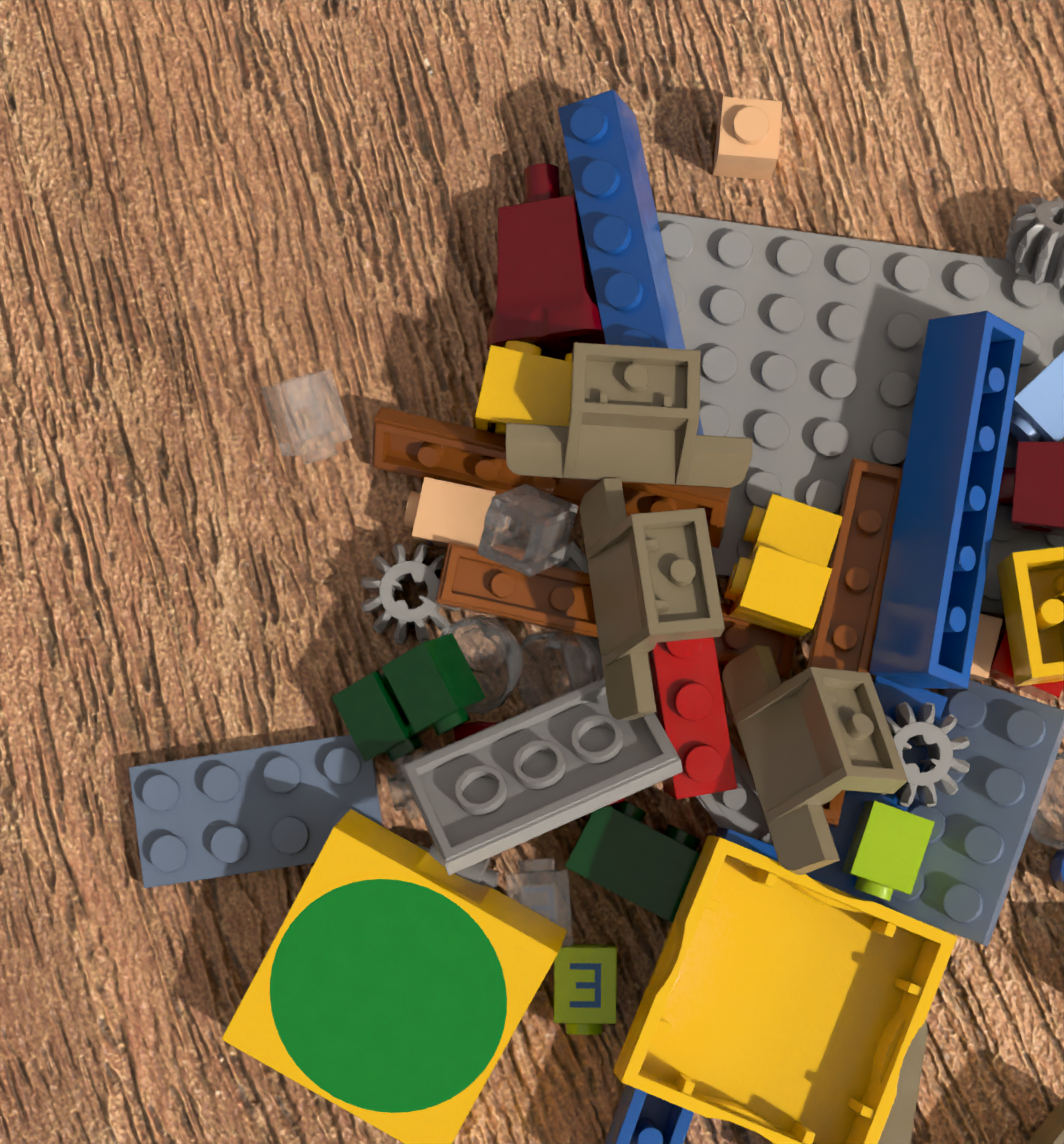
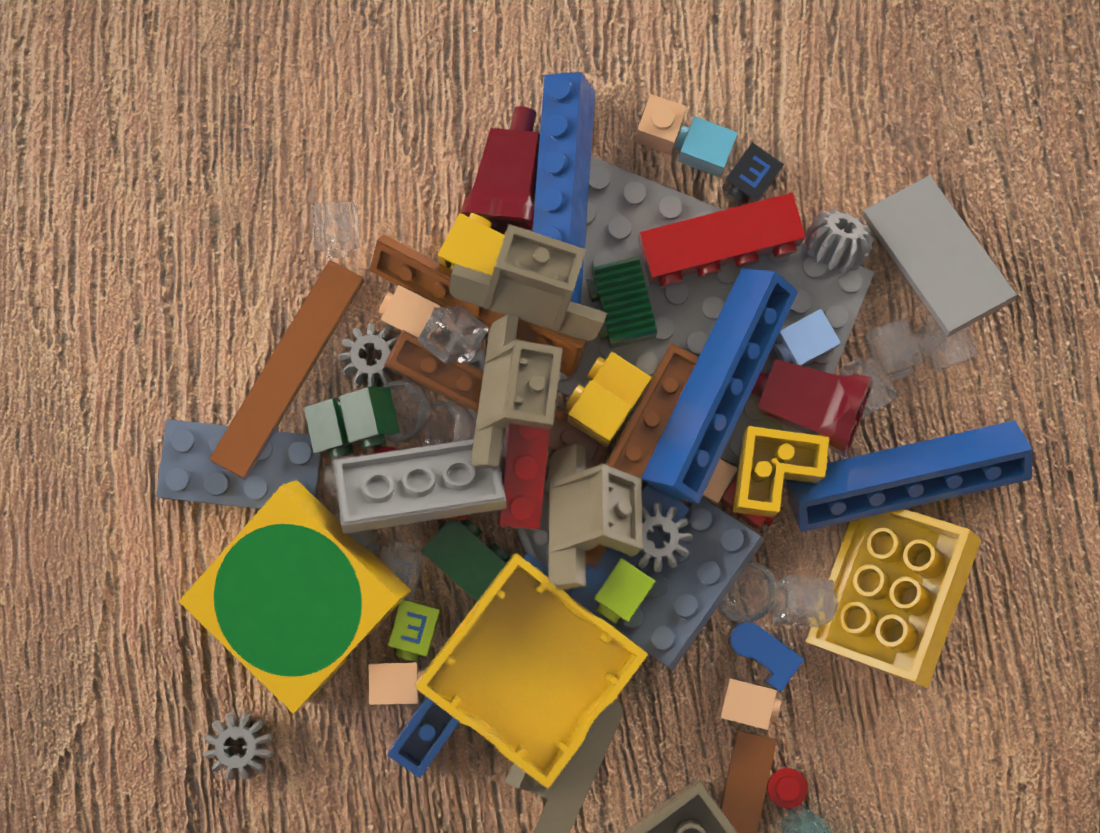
camera: 10 degrees right, 0 degrees up
(289, 648) = (286, 370): none -> dark orange tile
(577, 1074) = (394, 683): none -> light nougat brick
(765, 403) = (625, 299): none -> dark green brick
(822, 153) = (705, 146): none -> medium azure brick
(886, 284) = (721, 239): none -> red brick
(902, 182) = (751, 176): none -> black brick

